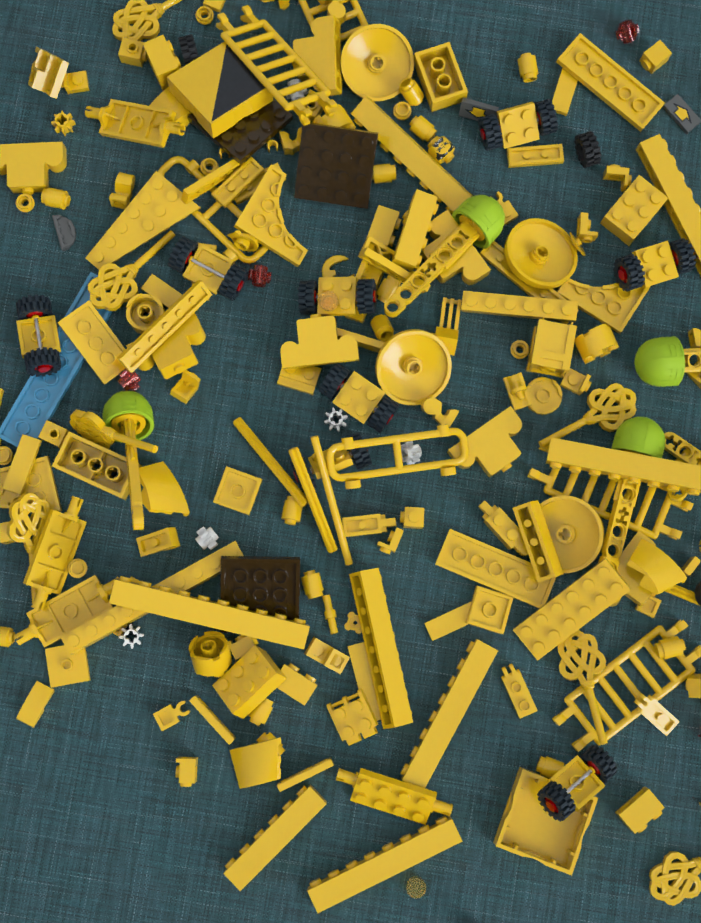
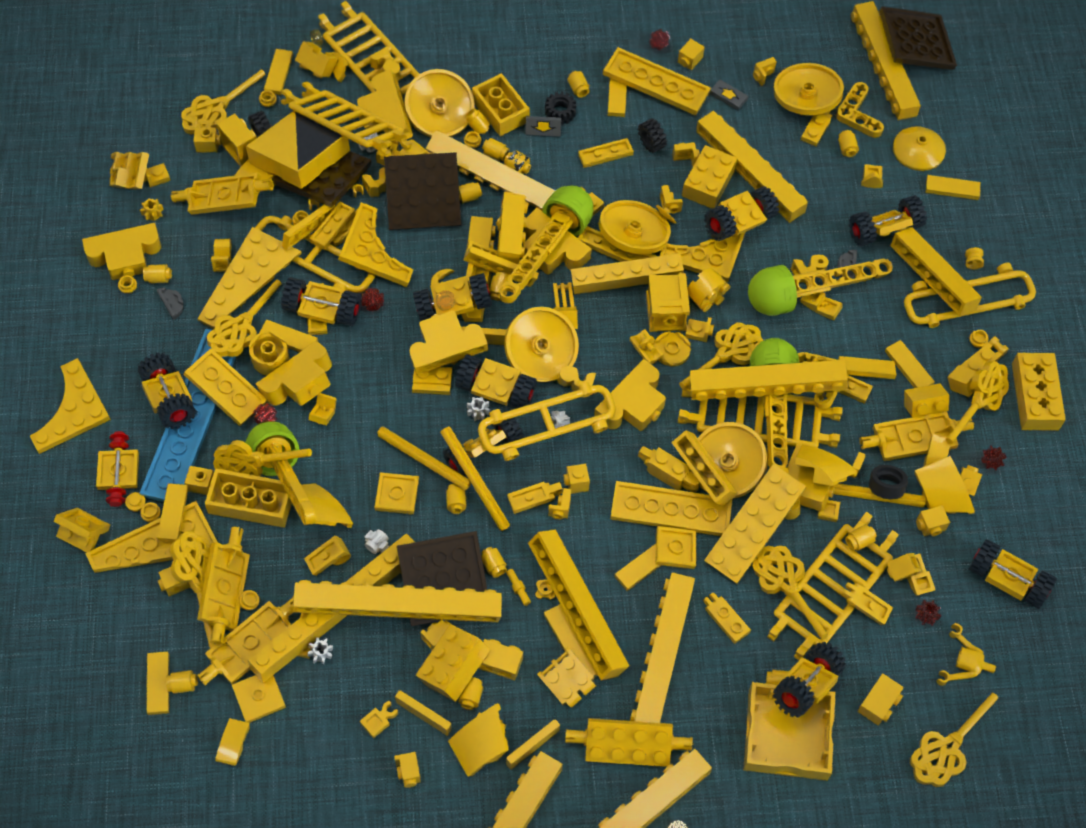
camera: 15 degrees left, 20 degrees down
(164, 326) = (290, 355): yellow plate -> none
(210, 654) = (406, 645): yellow brick -> none
(244, 241) = (350, 271): yellow animal -> none
(327, 655) = (525, 627): yellow slope -> none
(331, 500) = (493, 475): yellow piece -> none
(382, 327) = (501, 318): yellow brick -> none
(496, 82) = (561, 100): none -> black tyre
(518, 125) = (582, 128): plate -> none
(519, 343) = (638, 308): yellow plate -> none

